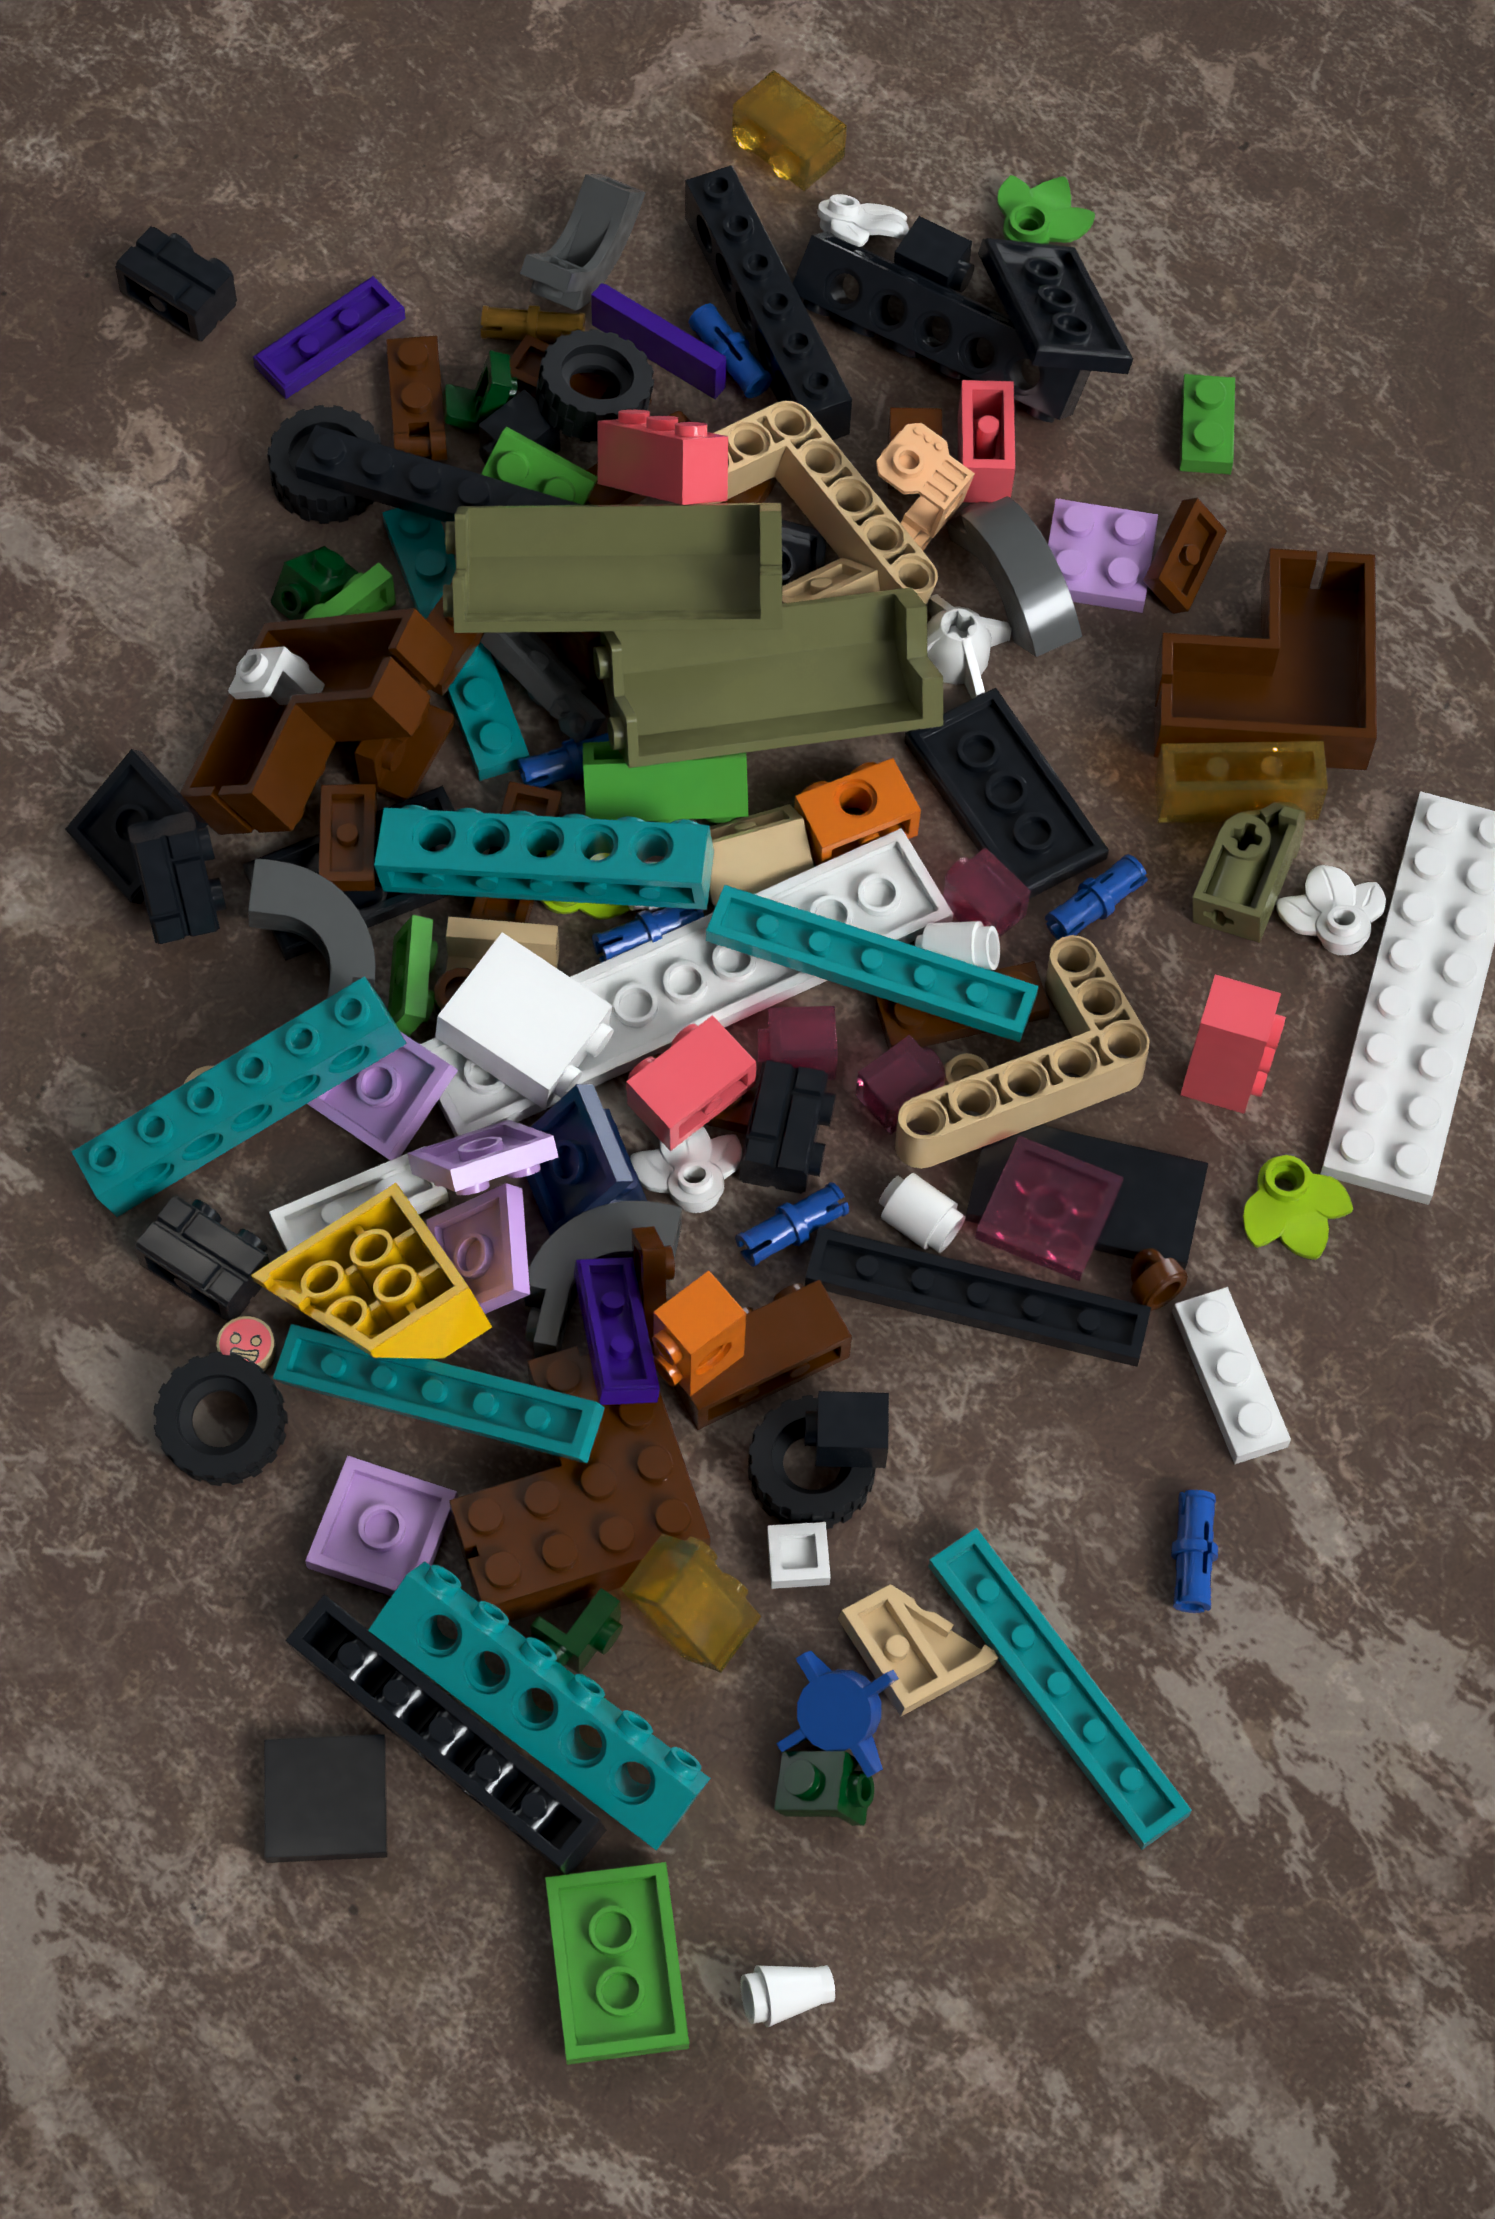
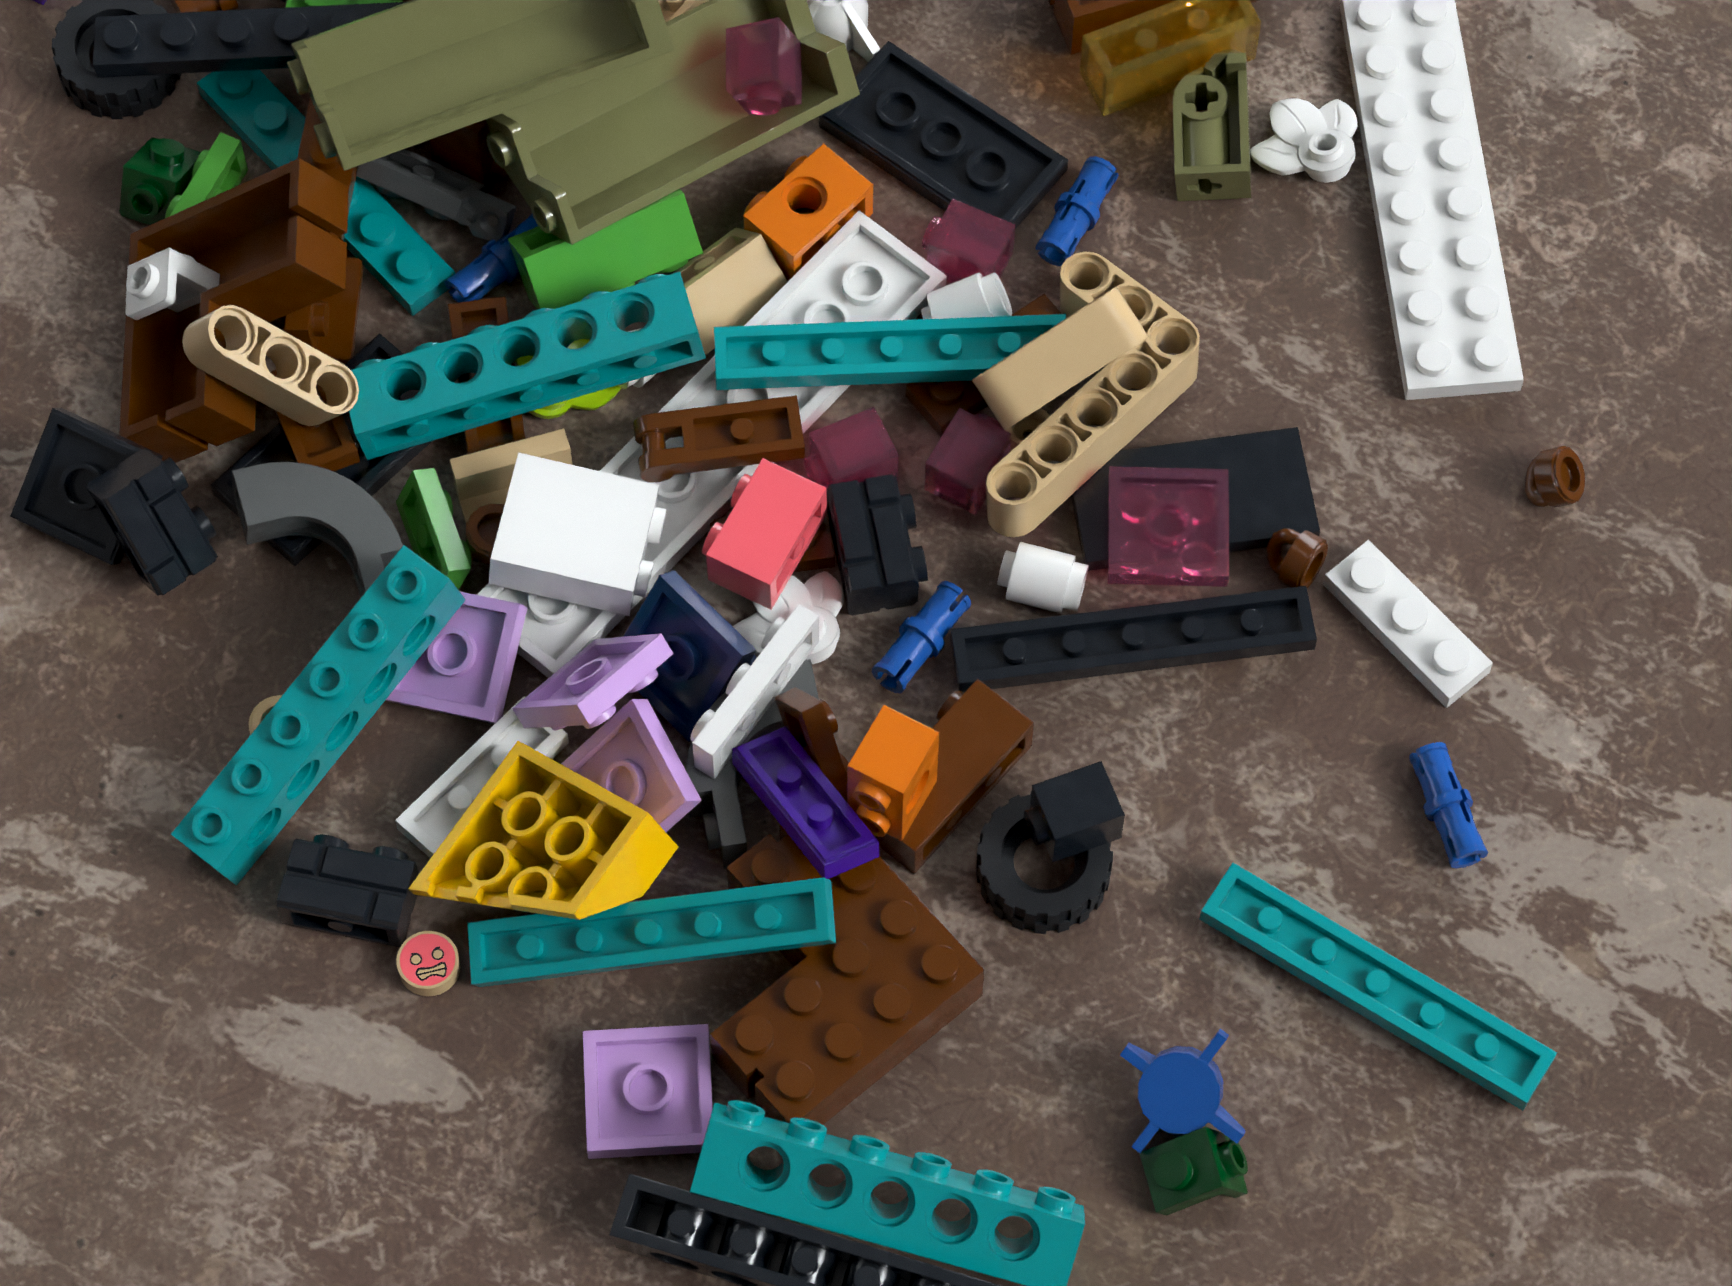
camera: 20 degrees left, 0 degrees up
(189, 1387) = (429, 996): black tyre -> none
(346, 785) = (245, 368): none -> tan beam
(592, 1632) = (905, 1108): dark green bracket -> none
(615, 1213) = (754, 690): none -> white plate
(643, 929) = (646, 399): blue pin -> none
(689, 983) = (719, 437): none -> reddish brown plate
(692, 1601) = (993, 1039): clear yellow brick -> none
(798, 1555) = (1070, 956): white plate -> none
(865, 671) = (763, 66): none -> clear pink brick
(915, 1644) = (1207, 995): tan wing -> none
(1012, 1022) = (1060, 358): none -> tan beam
(1234, 1044) = (1280, 301): coral brick -> none
(1295, 1215) = (1401, 447): lime plate -> none
(1422, 1295) = (1555, 478): none -> reddish brown tile

